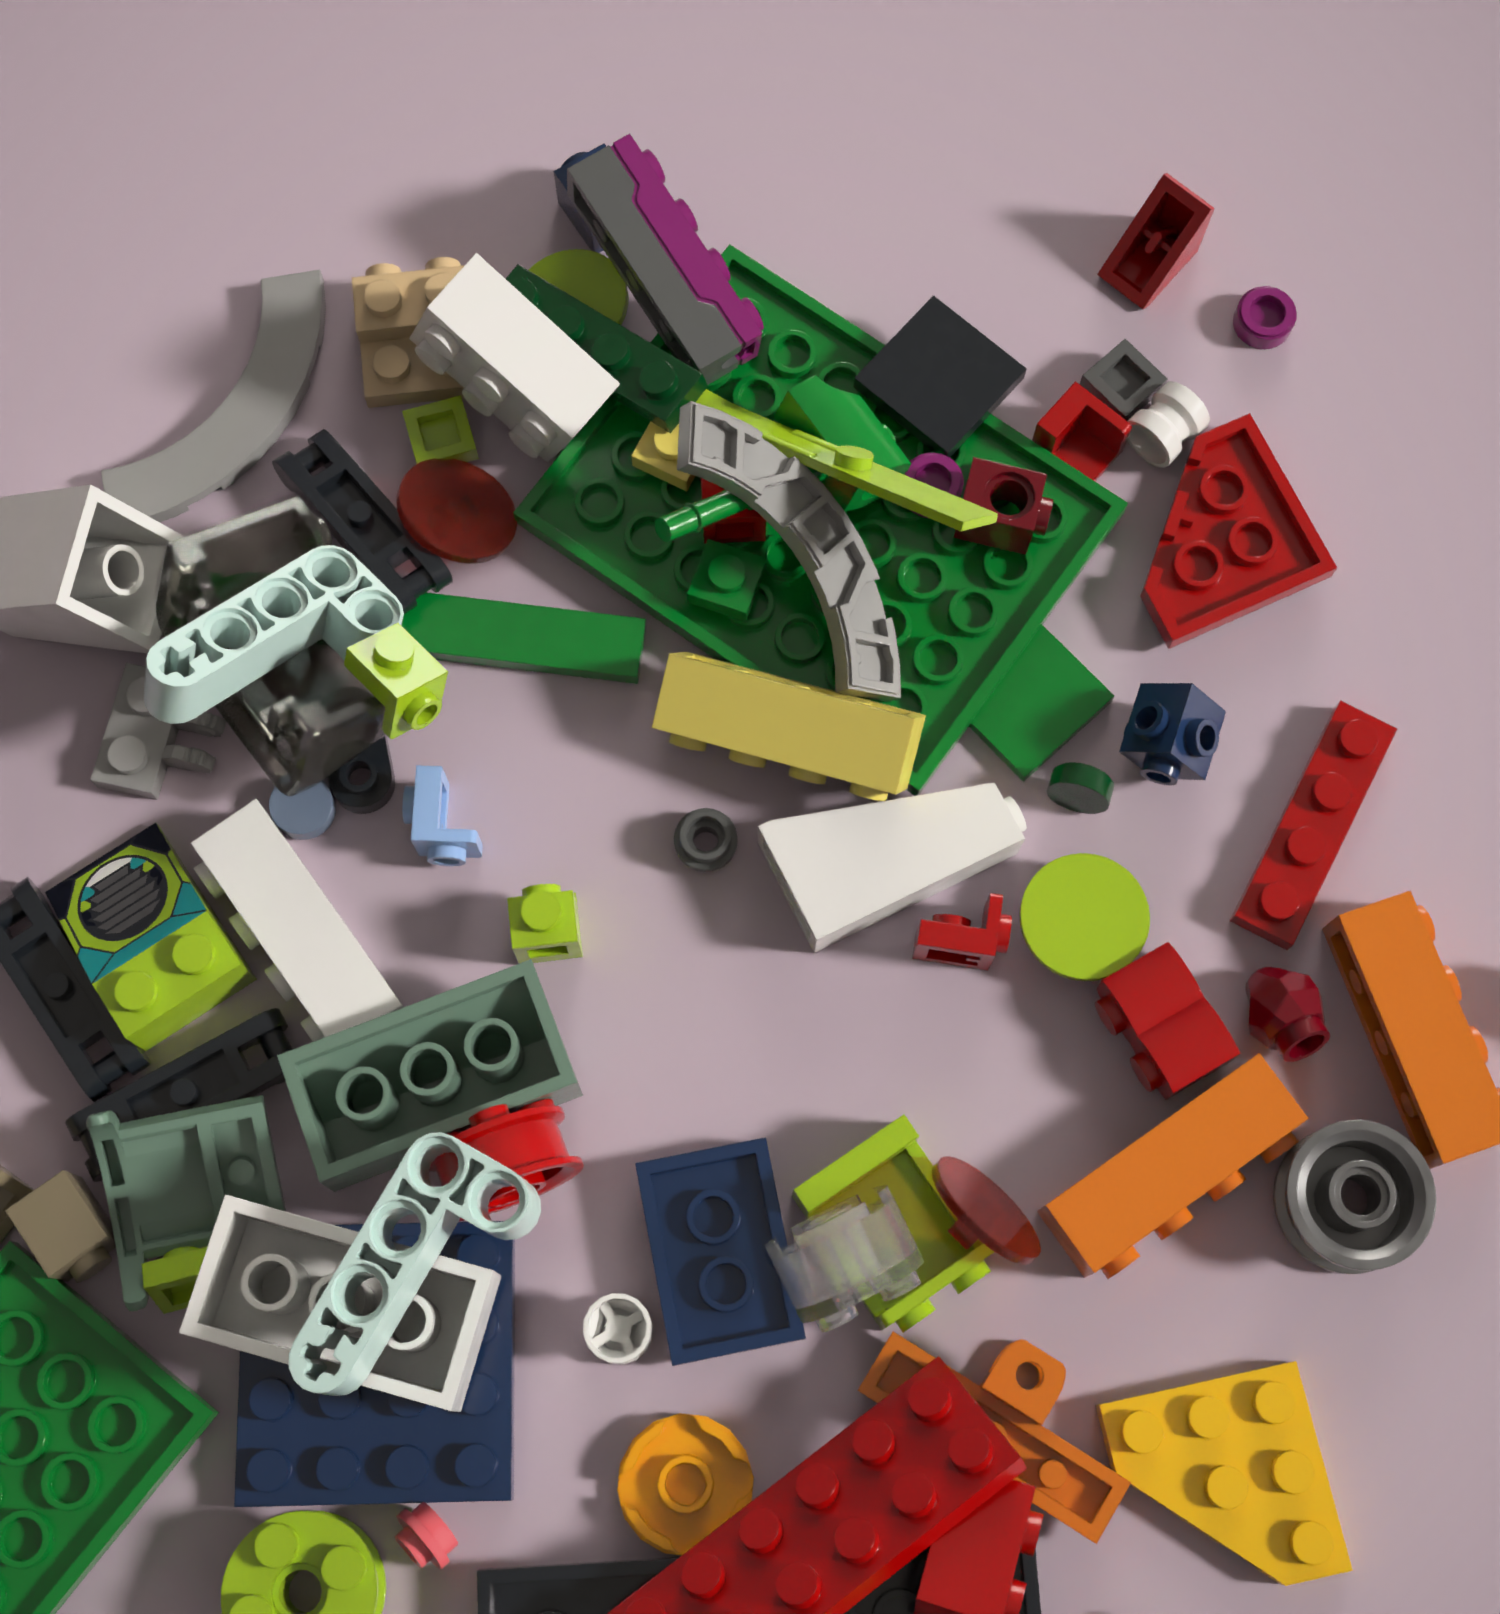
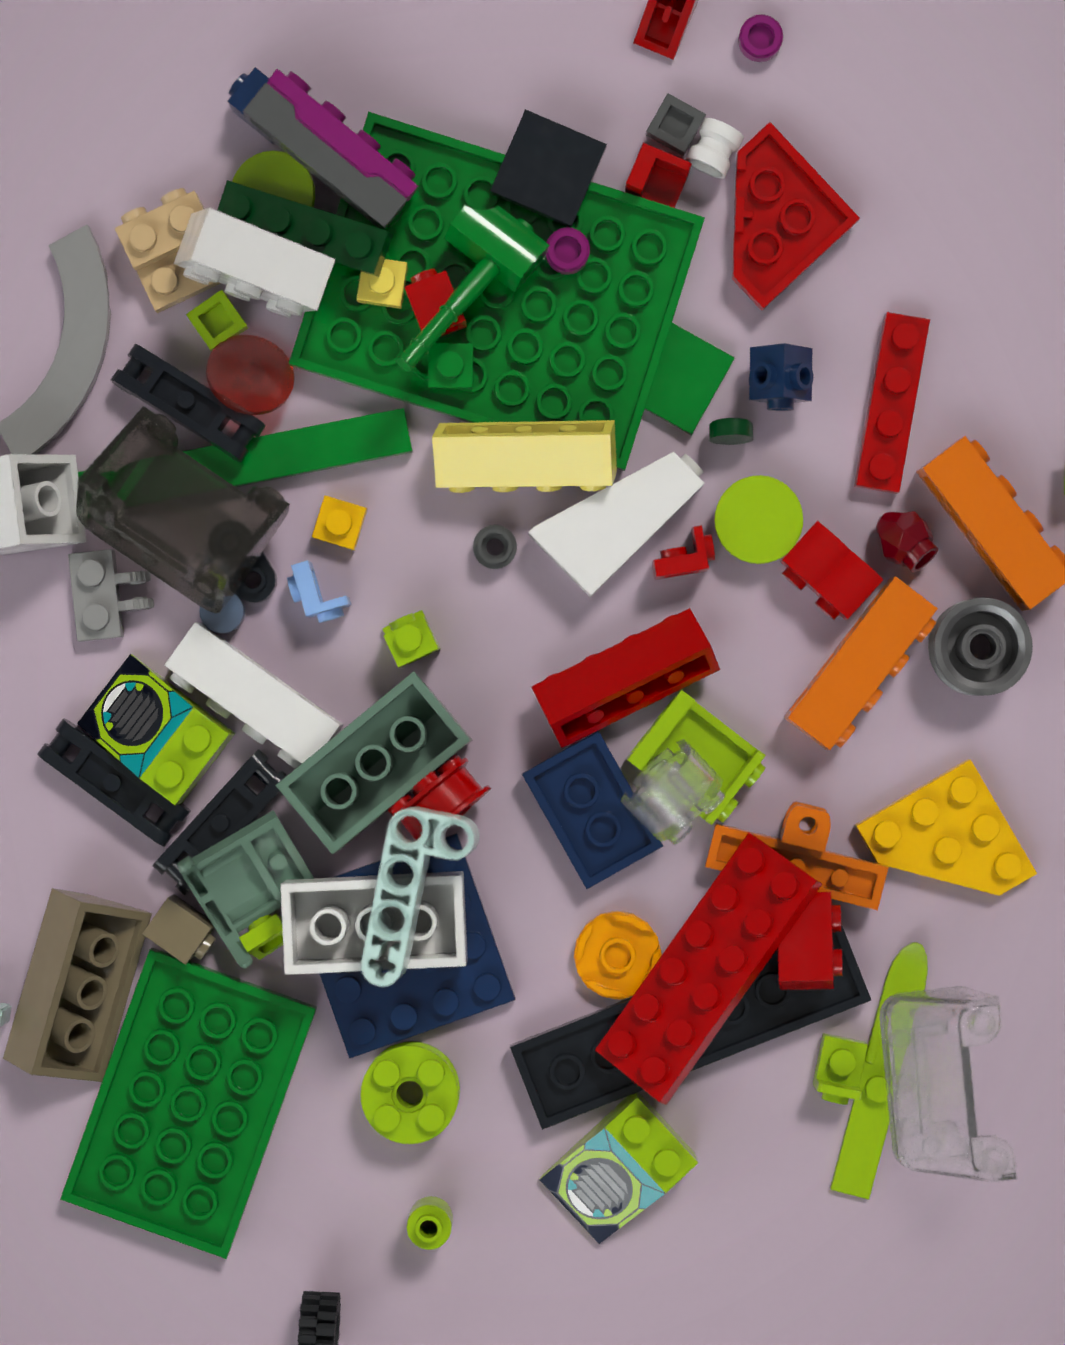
camera: 20 degrees left, 15 degrees up
(316, 597) = (164, 519): light aqua beam -> none
(400, 677) = (262, 516): lime bracket -> none
(425, 1536) = (471, 1037): coral plate -> none
(505, 741) = (339, 523): none -> yellow plate
(614, 1320) = (549, 883): white wheel -> none
(816, 531) = (502, 321): light grey tile -> none
(829, 1073) = (626, 677): none -> red brick
(857, 468) = (504, 272): lime piece -> none
(984, 1212) = (751, 733): clear red piece -> none
(996, 481) = (608, 270): dark red brick -> none

